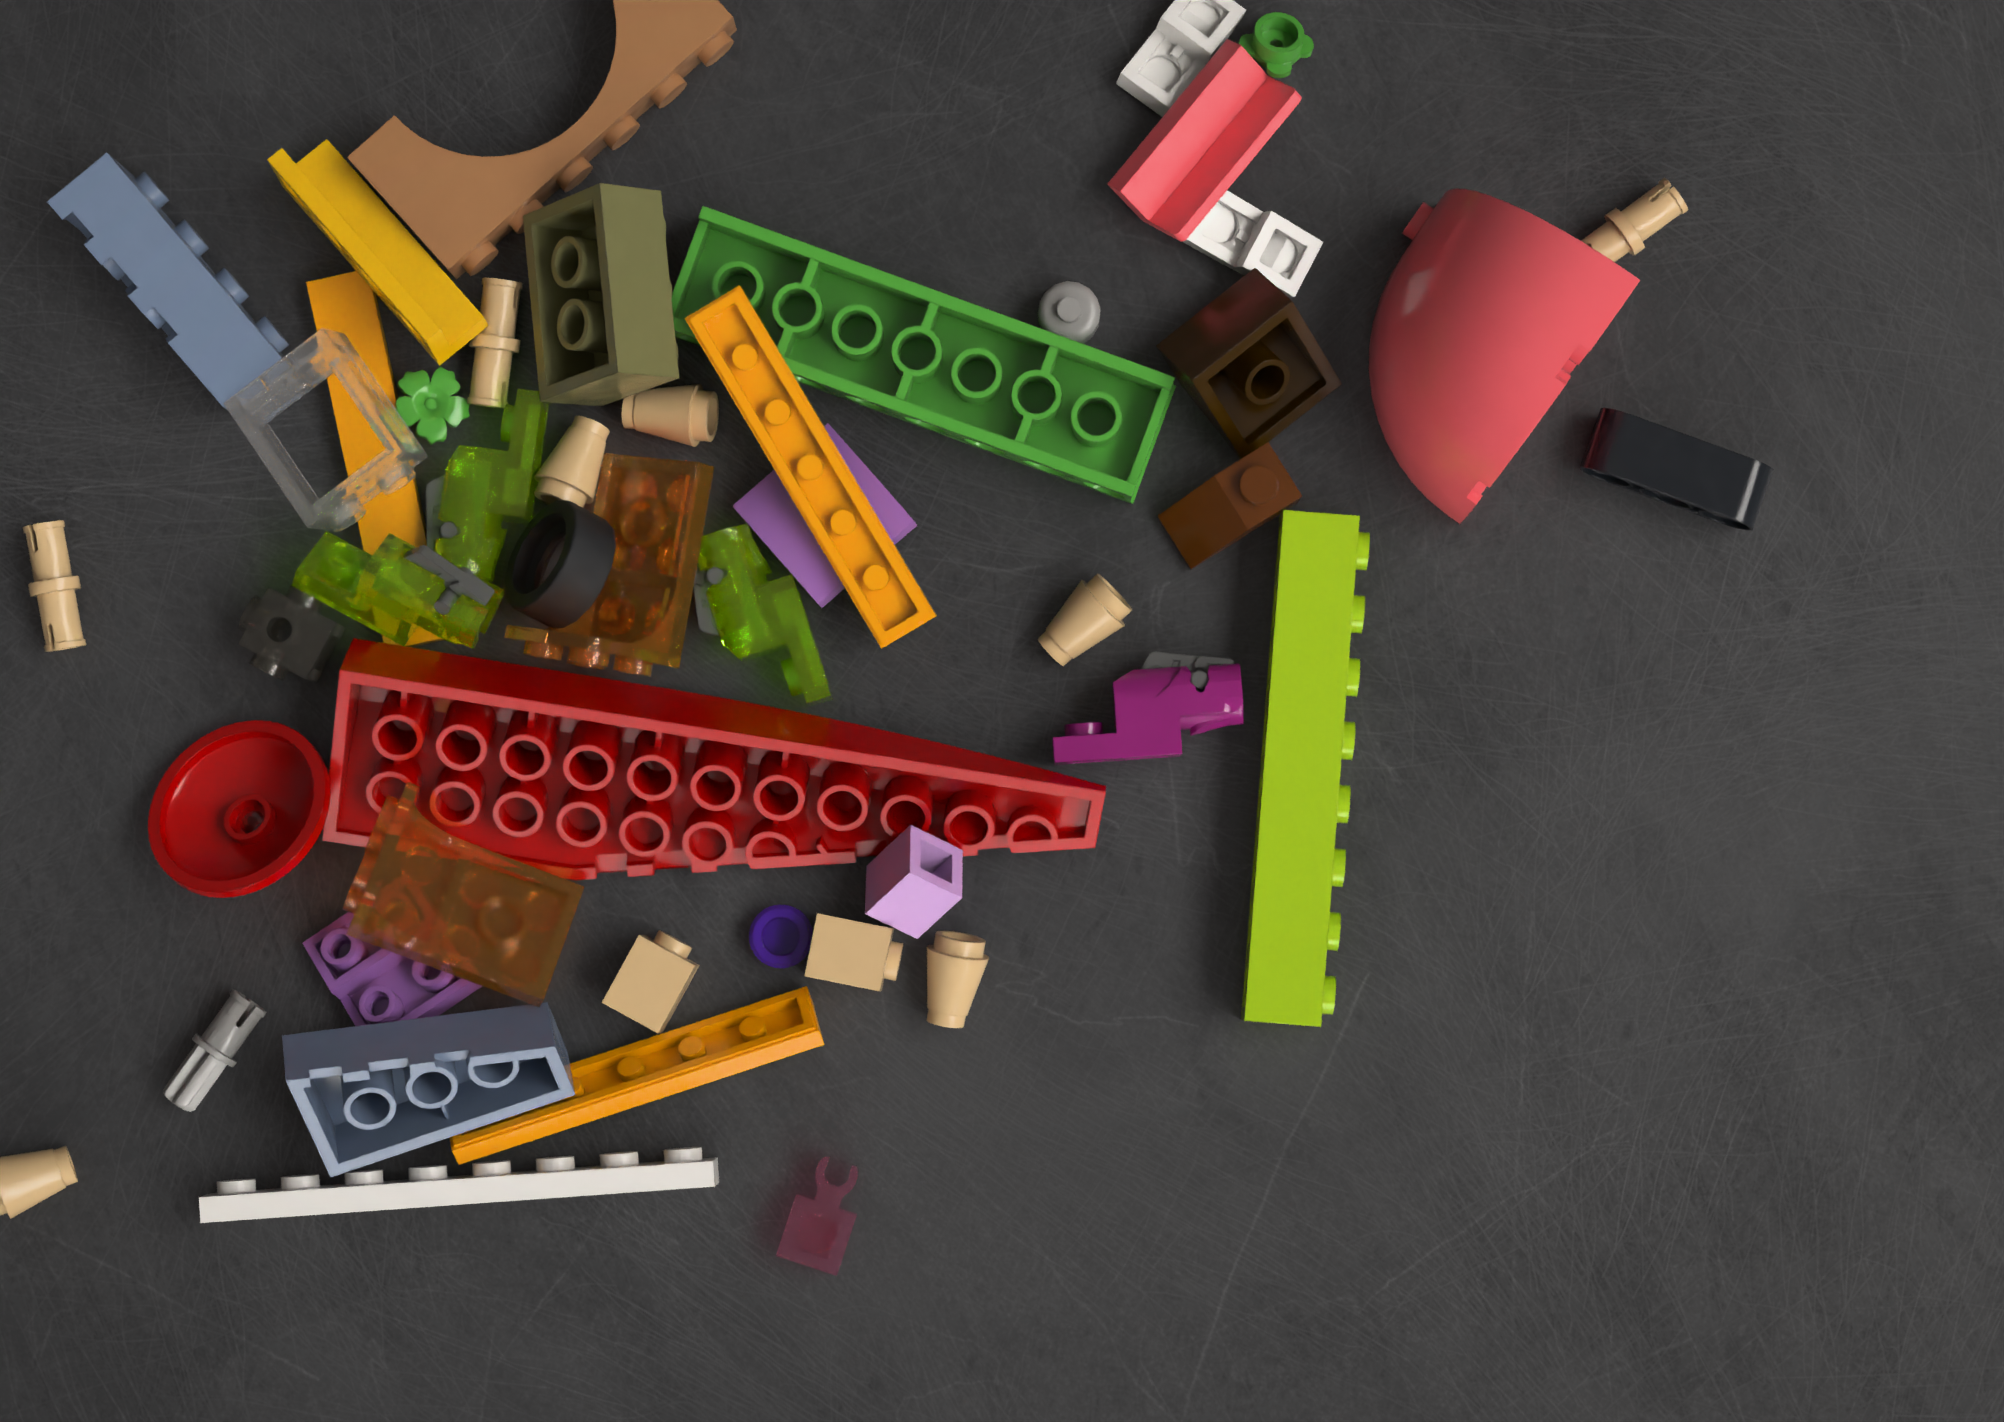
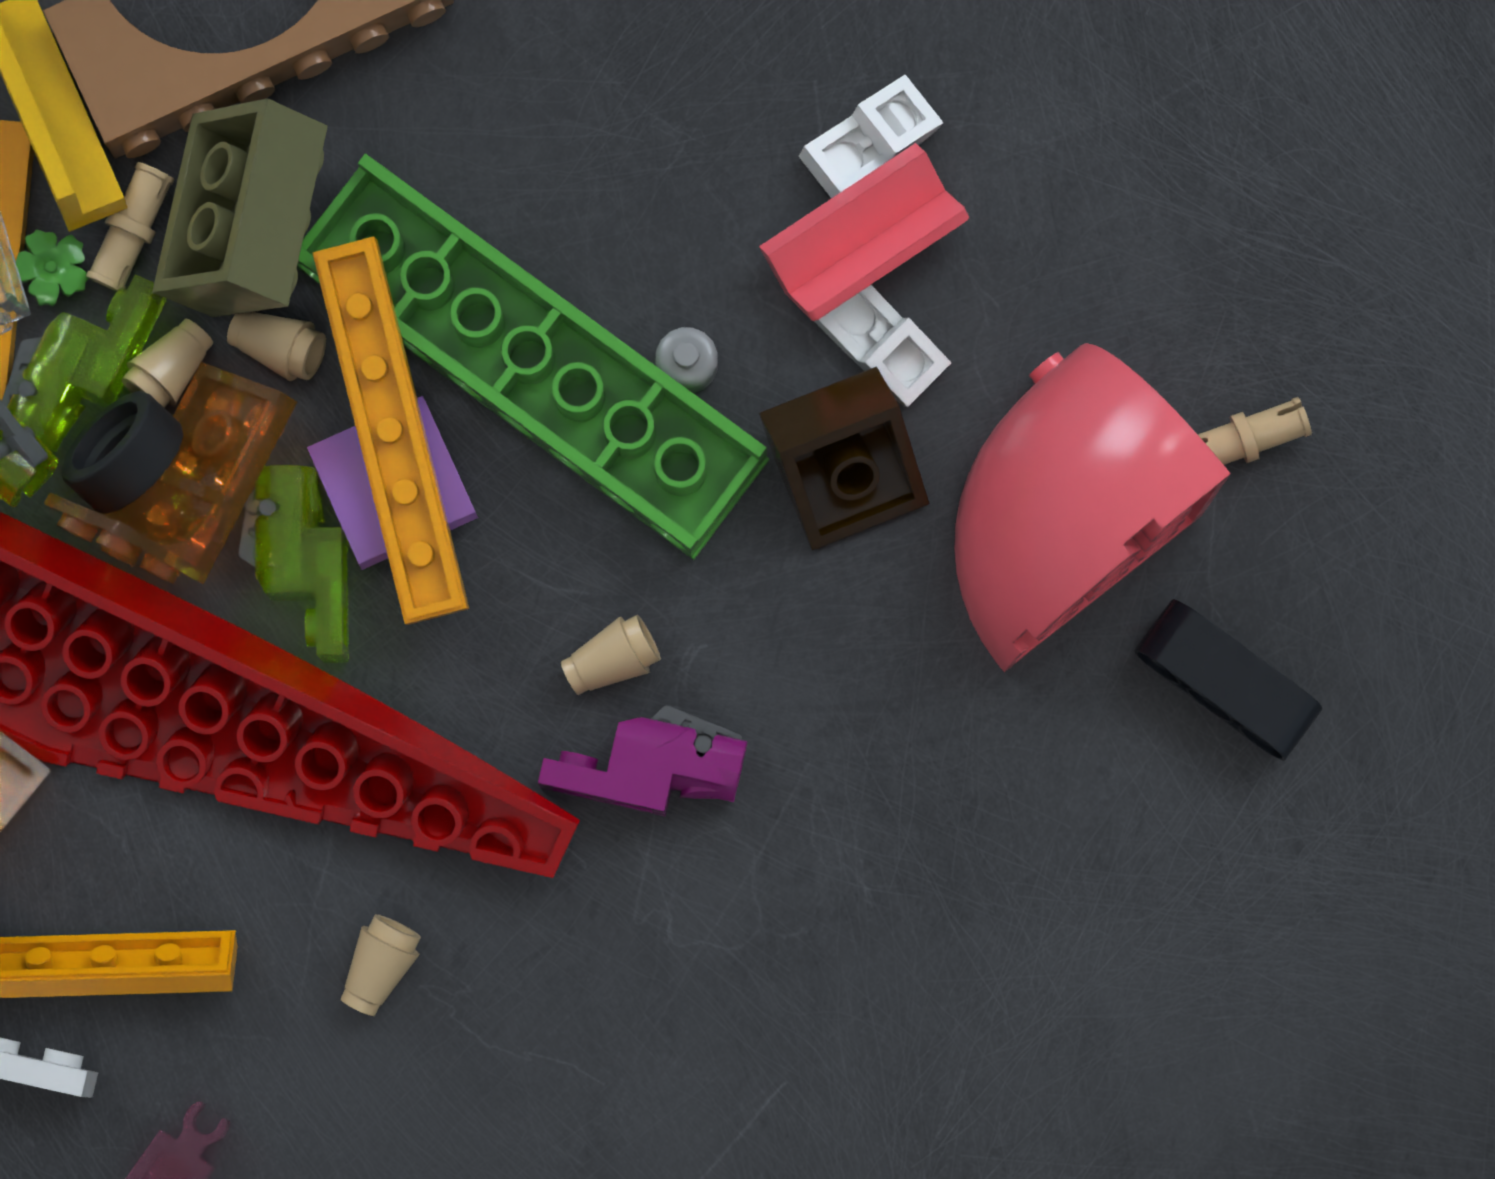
camera: 15 degrees right, 5 degrees down
(652, 980) = (86, 880): tan brick -> none
(781, 936) = (226, 875): dark purple tile -> none
(853, 953) = (288, 910): tan brick -> none
(913, 881) = (366, 858): lavender brick -> none
(1230, 506) = (785, 587): reddish brown slope -> none
(1280, 31) = (963, 162): bright green plate -> none
(1302, 768) = (776, 862): lime brick -> none

